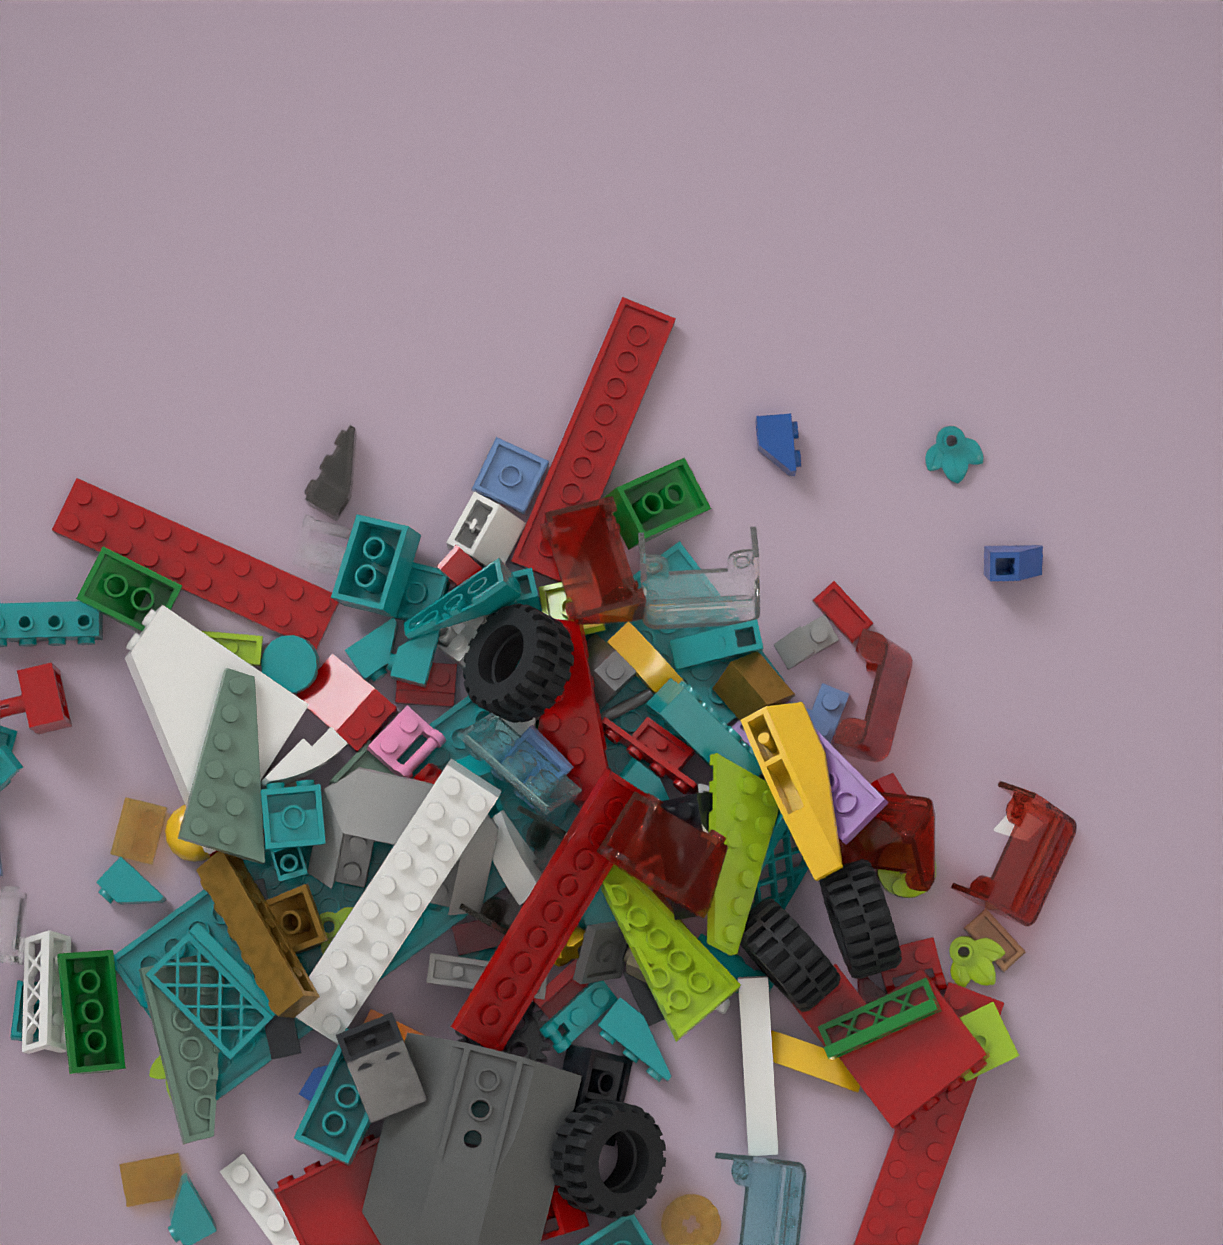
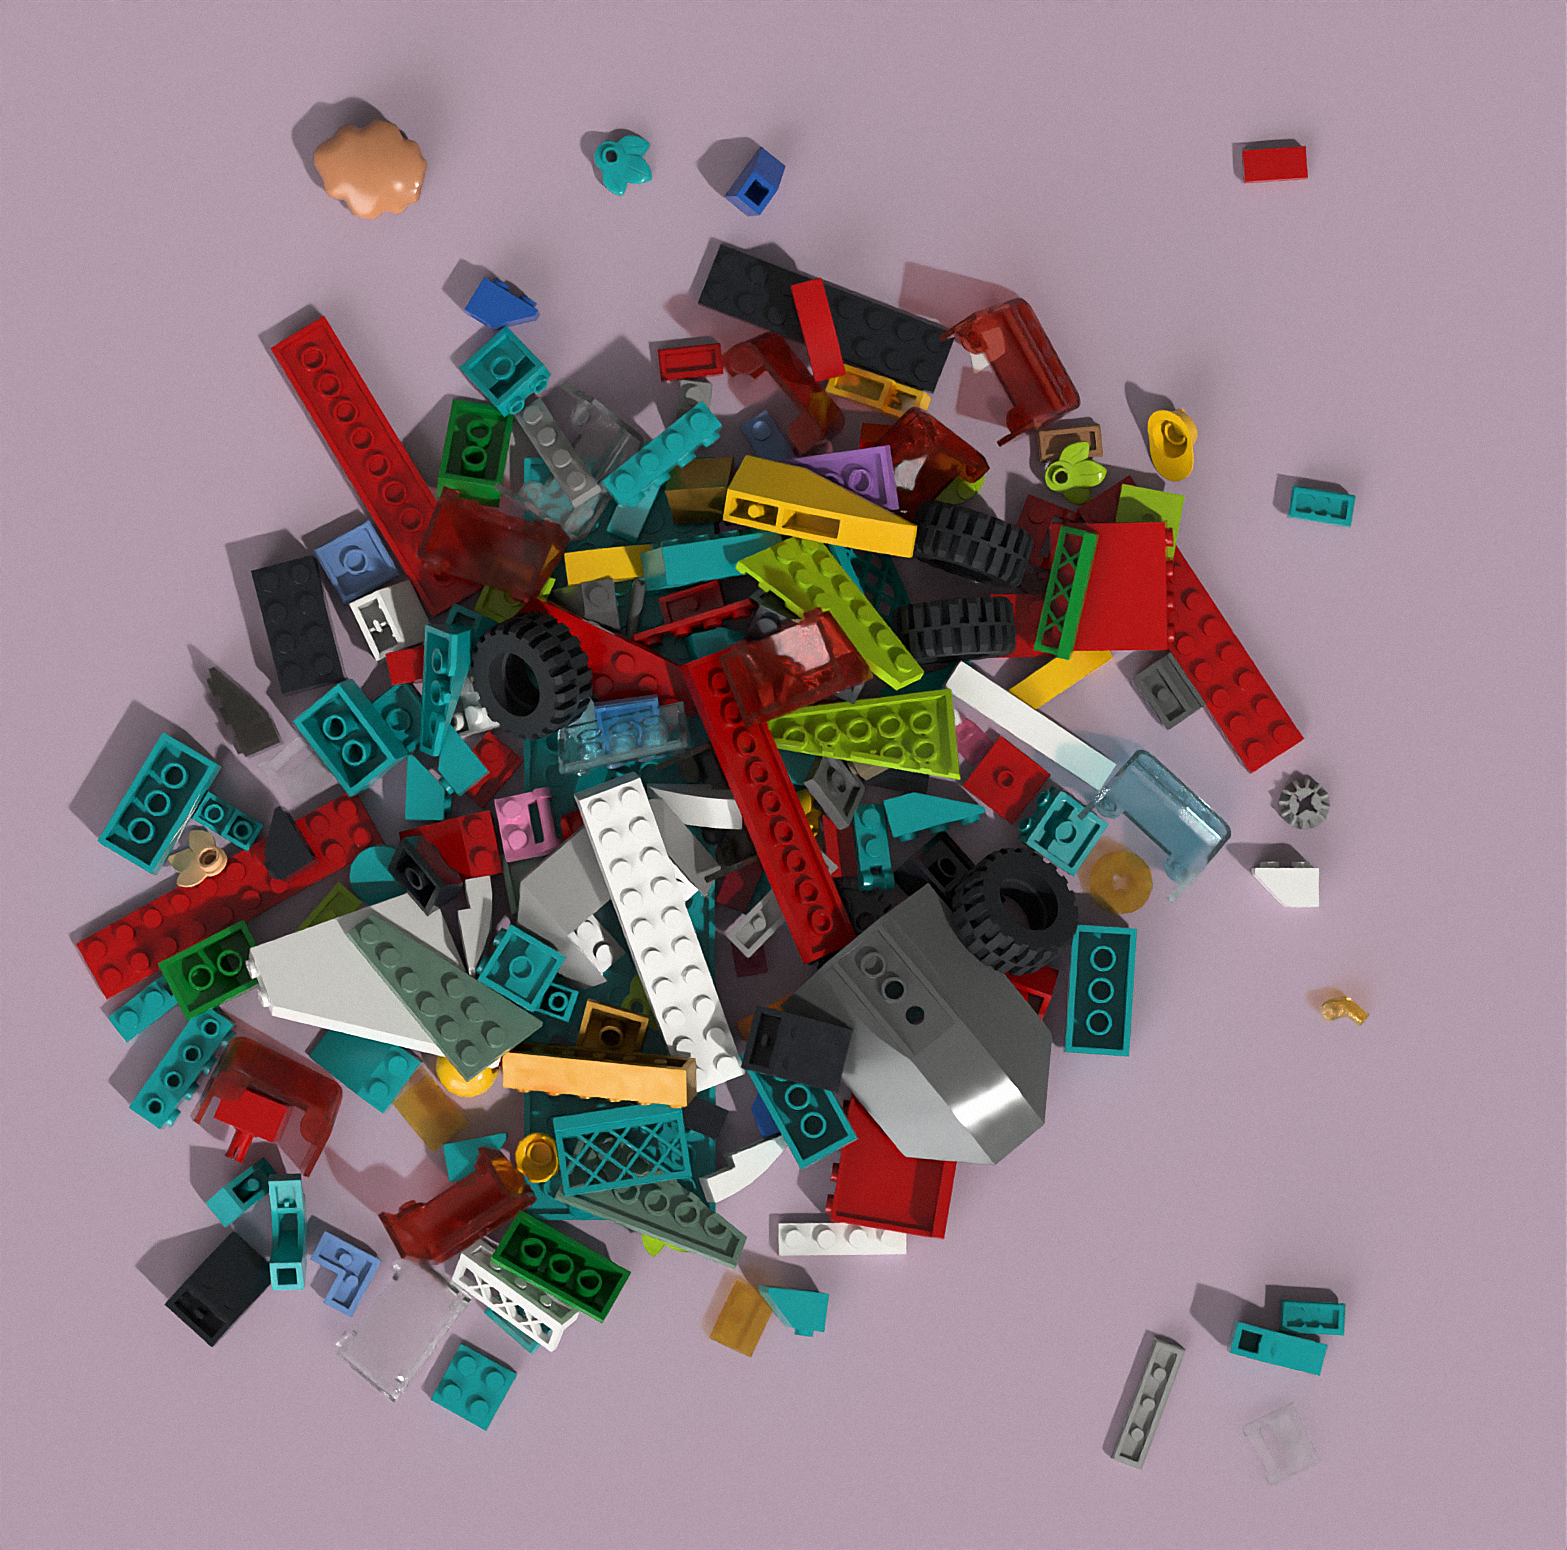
camera: 50 degrees left, 5 degrees up
(62, 562) = (143, 1009): none -> teal plate
(77, 907) = (462, 1213): none -> clear red windscreen
(84, 701) = (255, 1064): none -> clear red windscreen
(138, 759) = (367, 1066): none -> teal slope
(161, 933) = (537, 1157): none -> yellow hair
(200, 519) = (194, 861): none -> light nougat plate
(224, 462) = (159, 804): none -> teal brick
(248, 521) = (227, 821): none -> teal slope
(258, 578) = (287, 848): none -> black slope
(266, 1095) = (742, 1167): none -> white slope
(313, 693) = (424, 874): none -> black slope
(425, 991) = (749, 966): none -> clear pink slope
(432, 467) = (299, 625): none -> black brick
(499, 888) = (713, 835): none -> black hinge
(693, 1149) = (1058, 832): none -> teal plate
(700, 562) = (557, 452): none -> light grey plate
(704, 1079) = (1006, 780): none -> red plate
(714, 1031) = (972, 741): none -> clear pink slope
(733, 481) = (506, 372): none -> teal plate
(754, 638) = (661, 455): none -> teal brick
(810, 273) = (371, 168): none -> nougat piece
(863, 1153) = (1169, 691): none -> dark grey plate
(923, 765) = (877, 392): none -> yellow slope
(937, 687) = (818, 330): none -> red slope
(950, 689) = (865, 331): none -> black plate
(1052, 1016) = (1172, 443): none -> yellow piece
(1089, 1166) = (1321, 506): none -> teal plate

